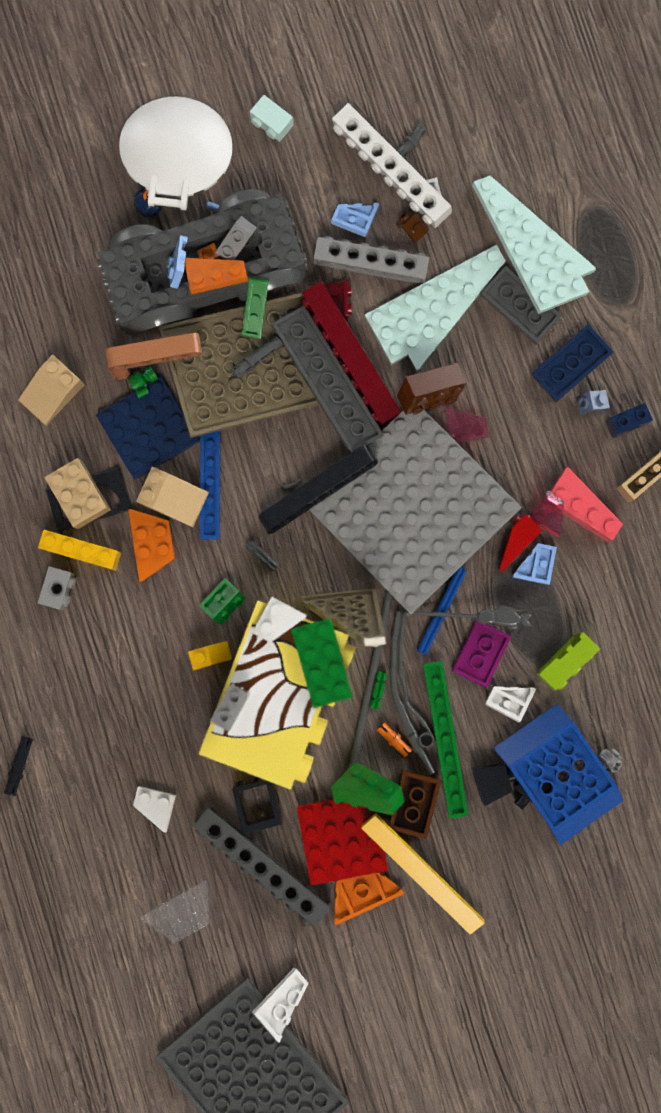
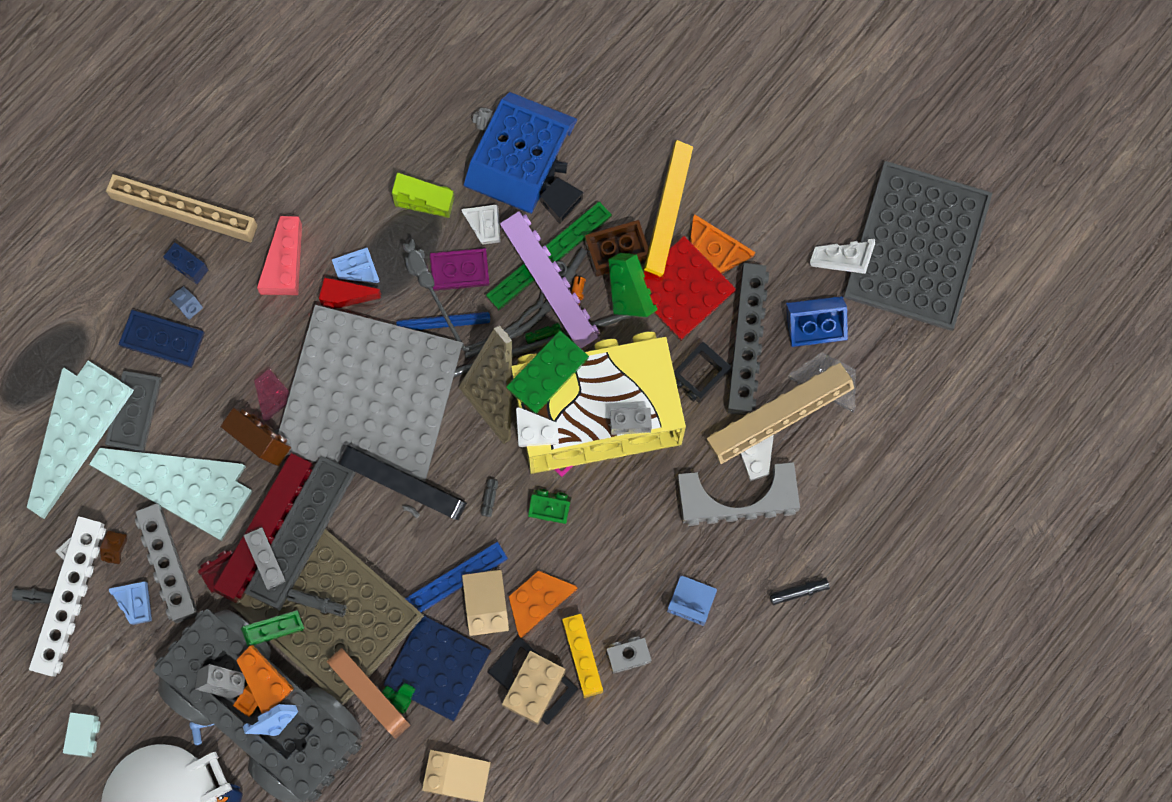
camera: 125 degrees left, 10 degrees down
(67, 669) = (692, 600): none -> medium blue bracket
(106, 802) = (700, 507): none -> light grey arch
(174, 851) = (780, 413): none -> tan brick
(210, 655) = (603, 488): yellow slope -> none
(239, 939) = (817, 321): none -> blue slope
(320, 336) = (264, 558): none -> light grey plate
(418, 724) = (550, 282): none -> lavender brick
(549, 513) = (306, 281): clear pink wing -> none

